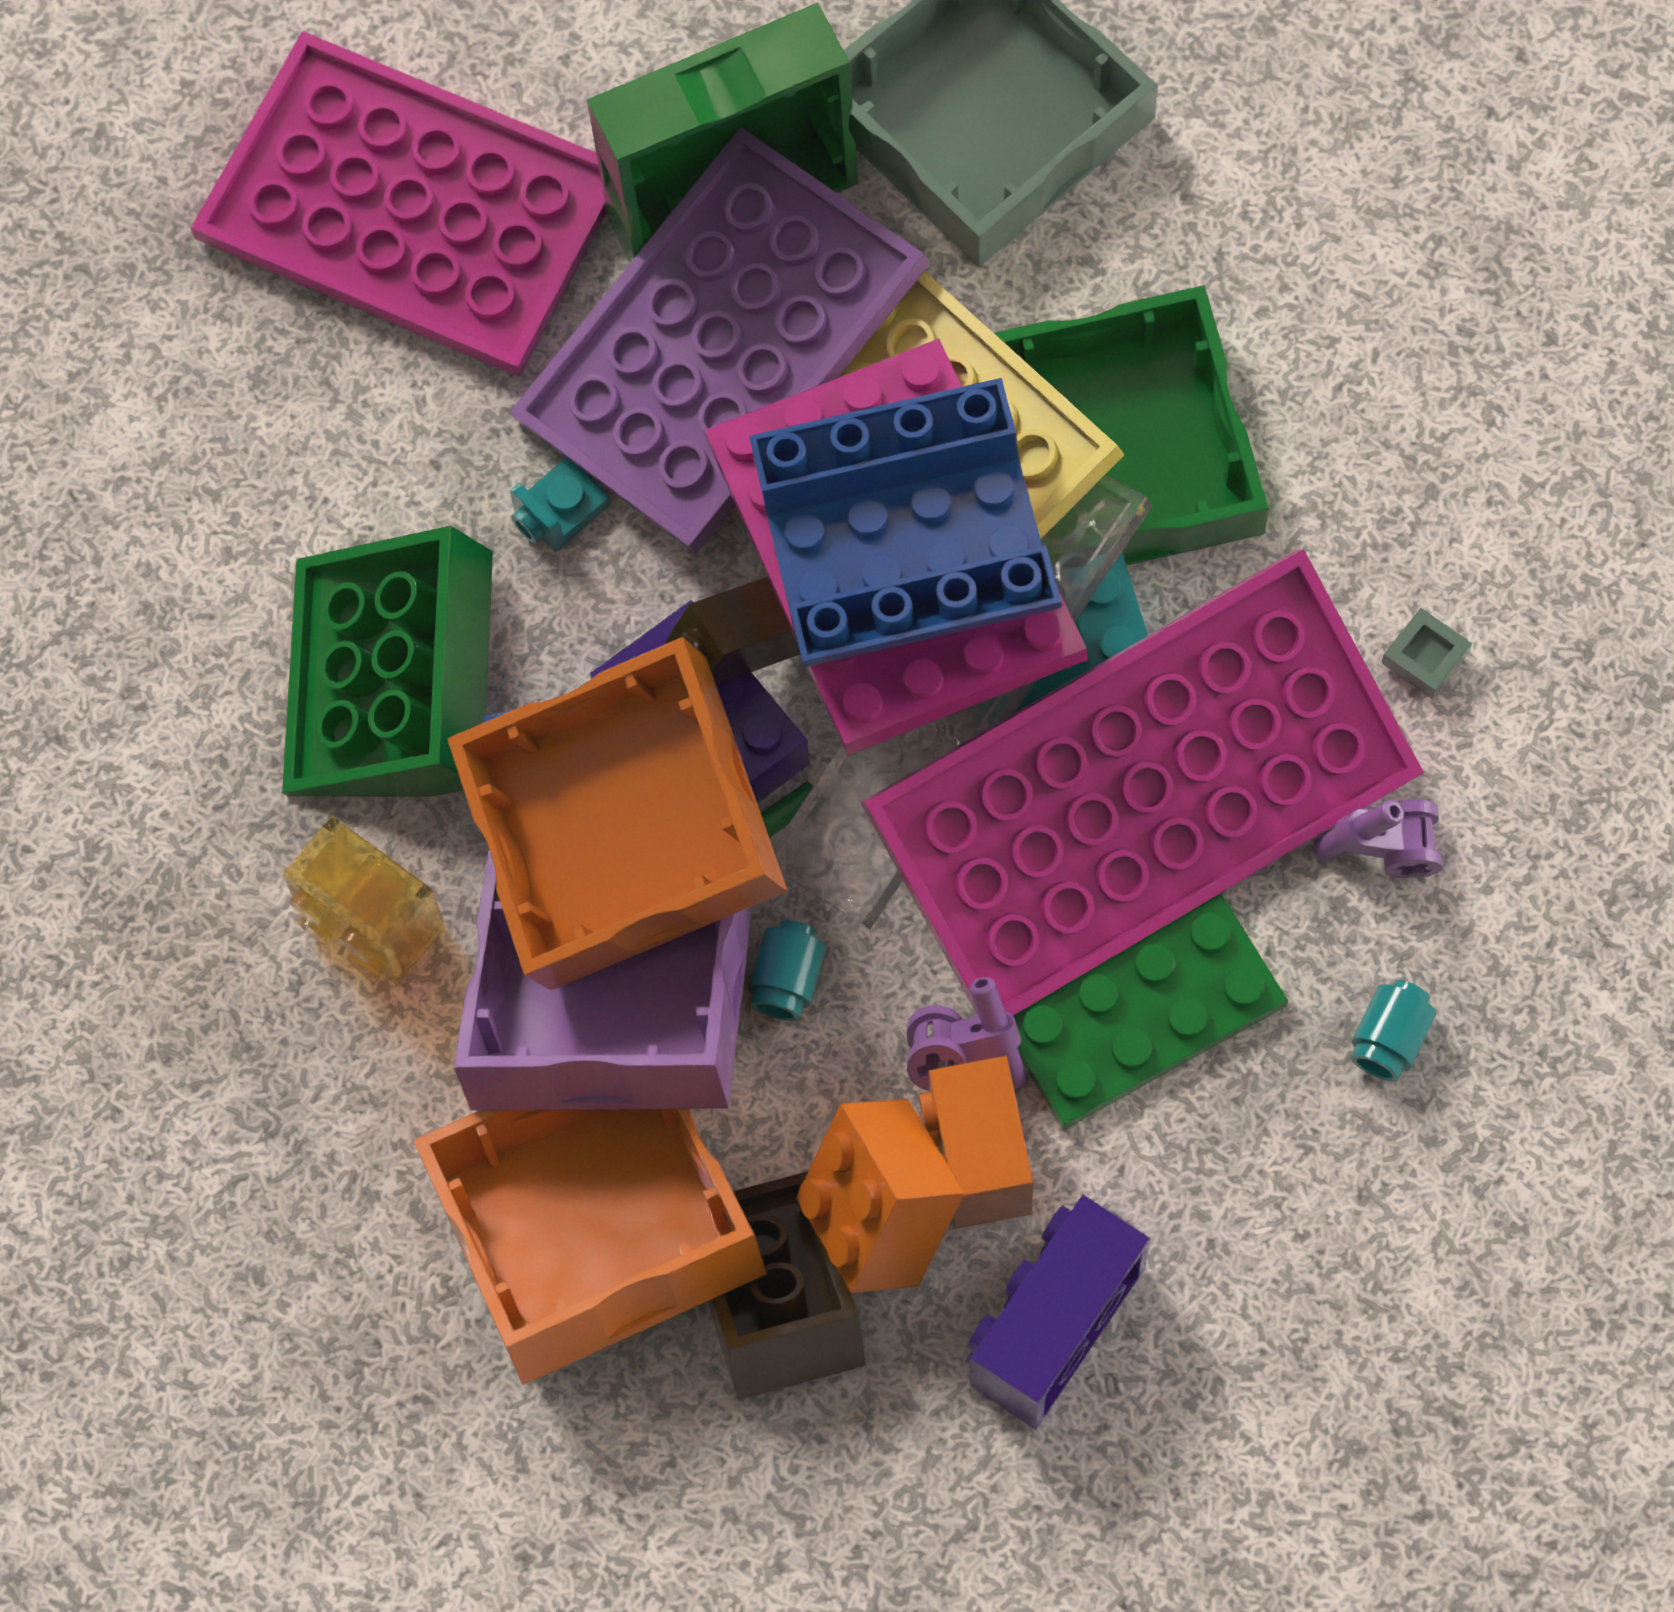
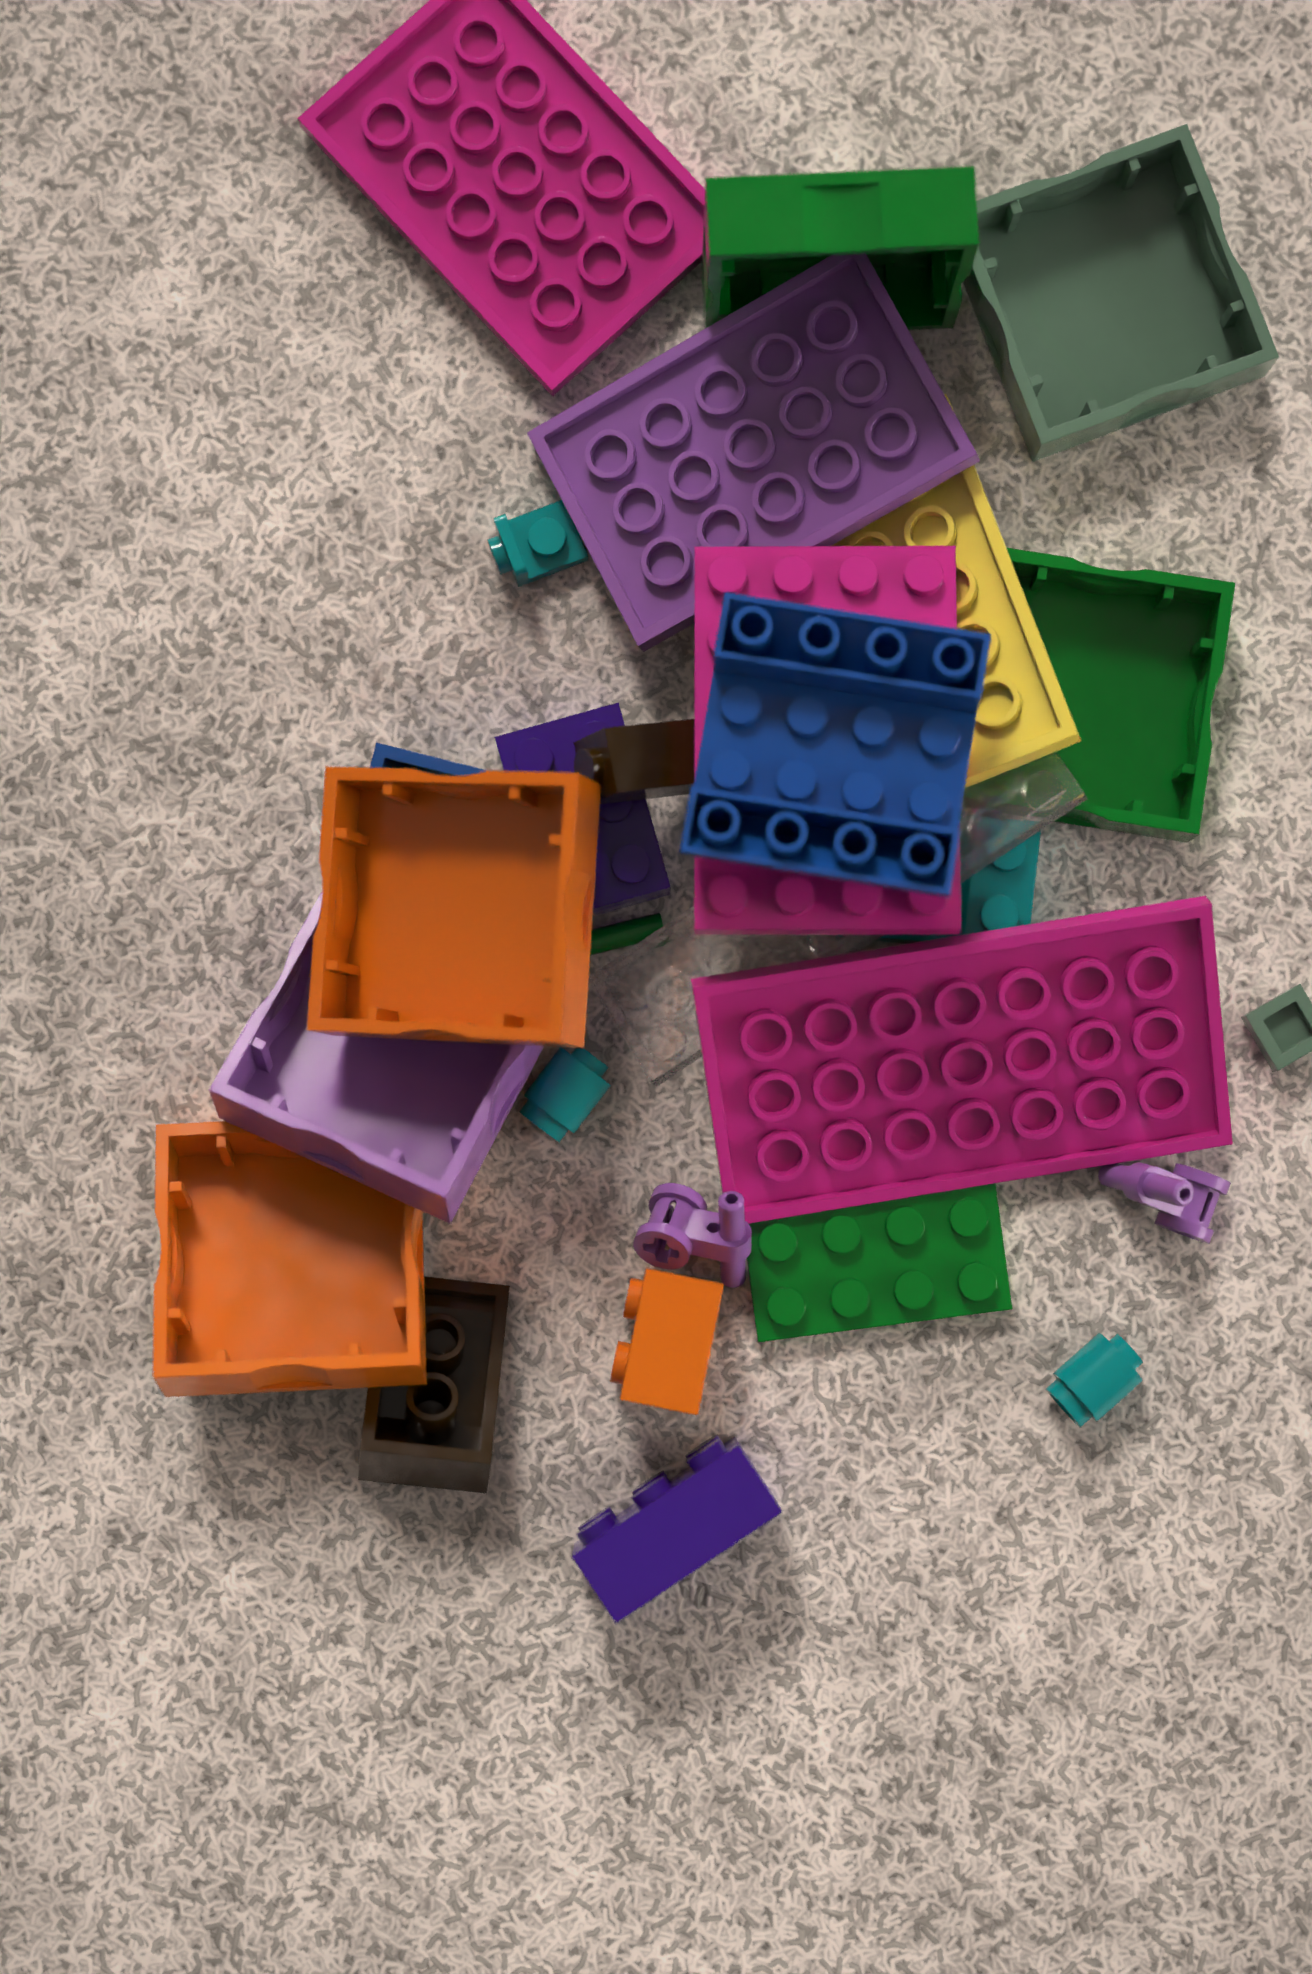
camera: 15 degrees right, 15 degrees up
(363, 902) = (198, 874): clear yellow brick -> none
(386, 665) = (315, 641): green slope -> none
(879, 1195) = (556, 1358): orange brick -> none

